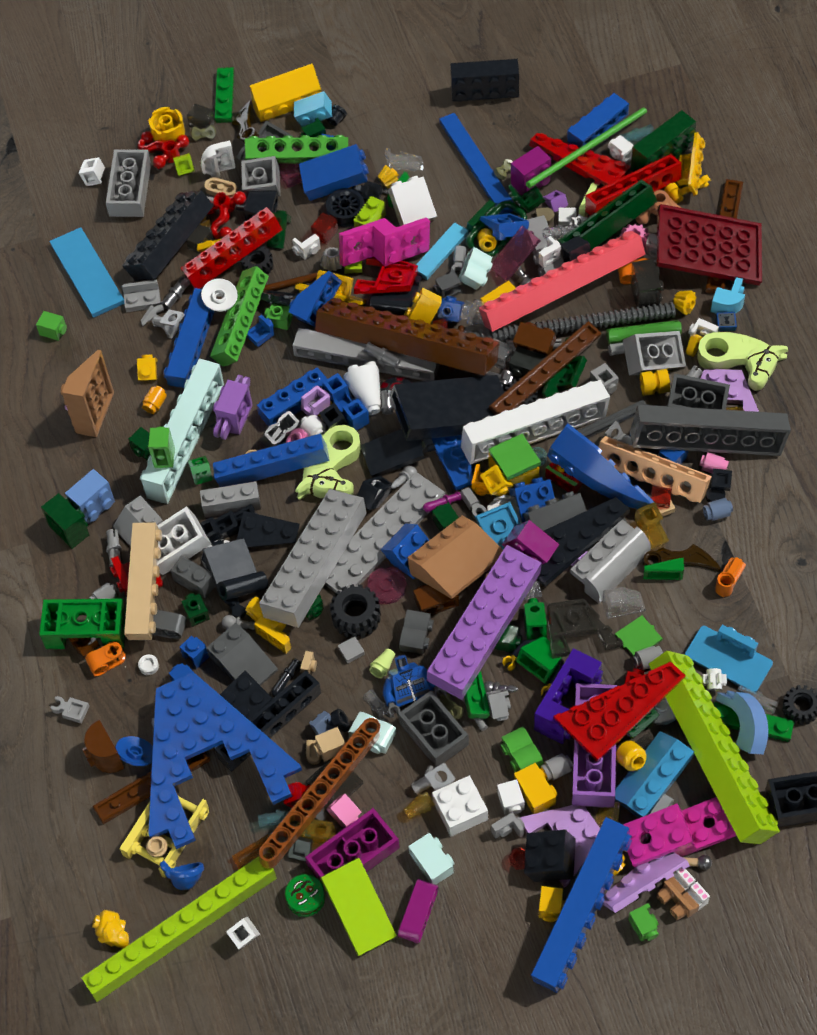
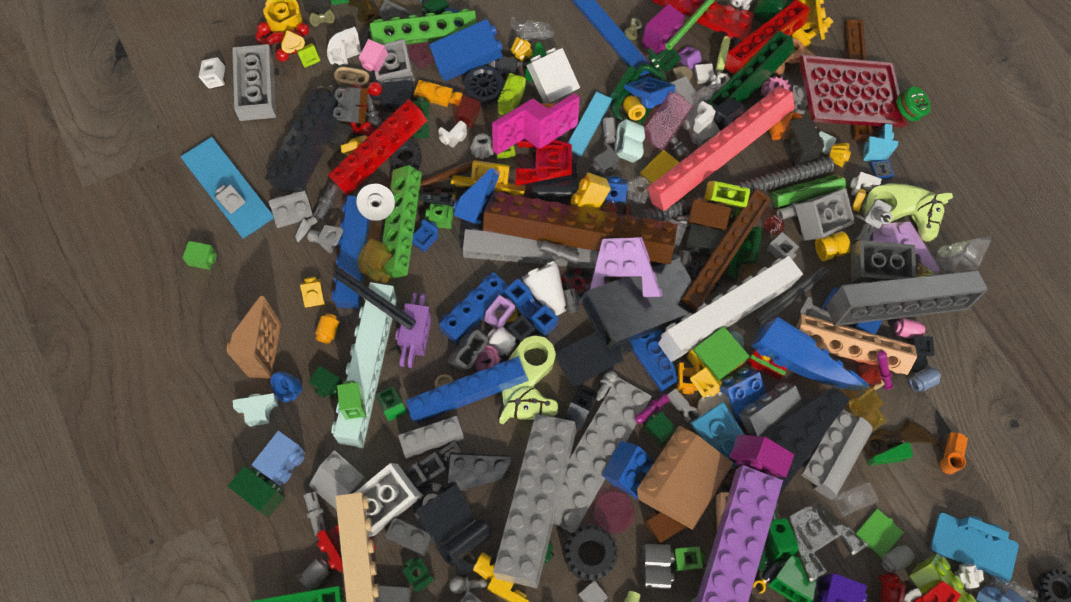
camera: 20 degrees left, 10 degrees up
(78, 457) = (256, 408): none -> light aqua brick
(87, 279) = (229, 198): none -> light grey bracket
(107, 441) = (285, 386): none -> blue hat
(170, 150) = (291, 42): none -> yellow tile
(200, 371) = (374, 298): none -> black axle
(207, 343) = (372, 260): none -> clear yellow brick
(210, 208) = (347, 100): none -> dark grey hips
(233, 221) = (373, 116): none -> flat silver bar
(242, 167) = (373, 56): none -> bright pink brick
(299, 210) = (437, 94): none -> light orange plate
(439, 362) = (625, 258): none -> lavender wing
(442, 628) = (694, 553): none -> bright green brick
(555, 320) = (727, 194): none -> lime brick
(602, 356) = (774, 224): none -> clear red tile
(671, 289) = (828, 142): none -> light aqua tile
(674, 484) = (884, 367): none -> magenta piece
(703, 355) = (878, 214): none -> light grey bracket
(772, 262) = (913, 103): none -> green head
(782, 398) = (963, 255): none -> clear slope

